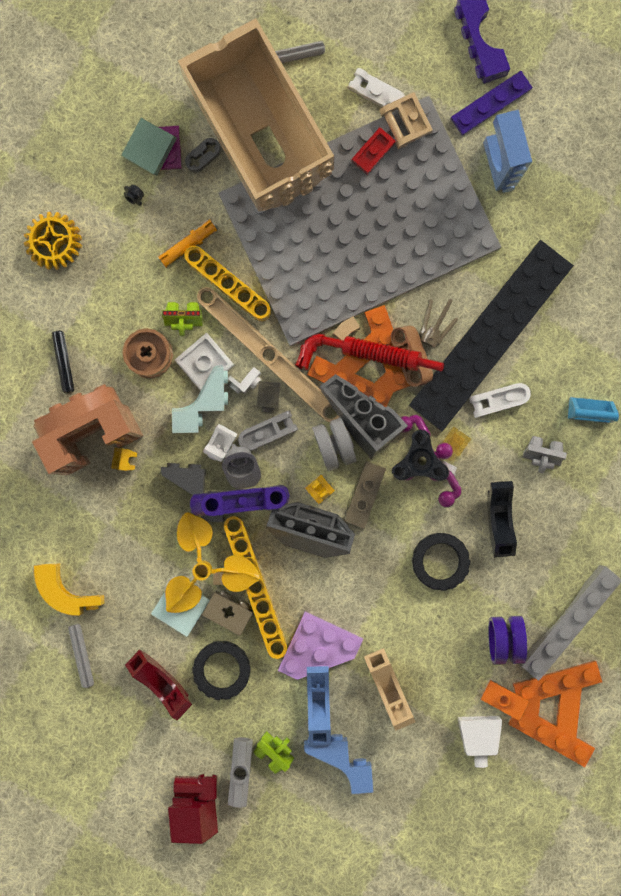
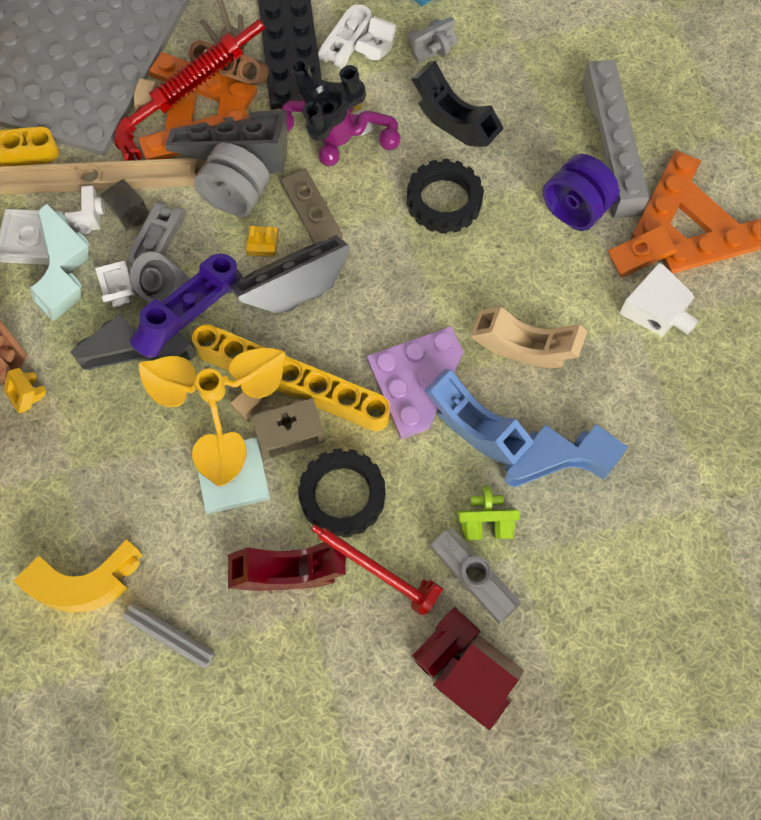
camera: 50 degrees left, 20 degrees down
(206, 757) = (422, 598): none -> red piece
(511, 422) = (378, 39): none -> white bracket

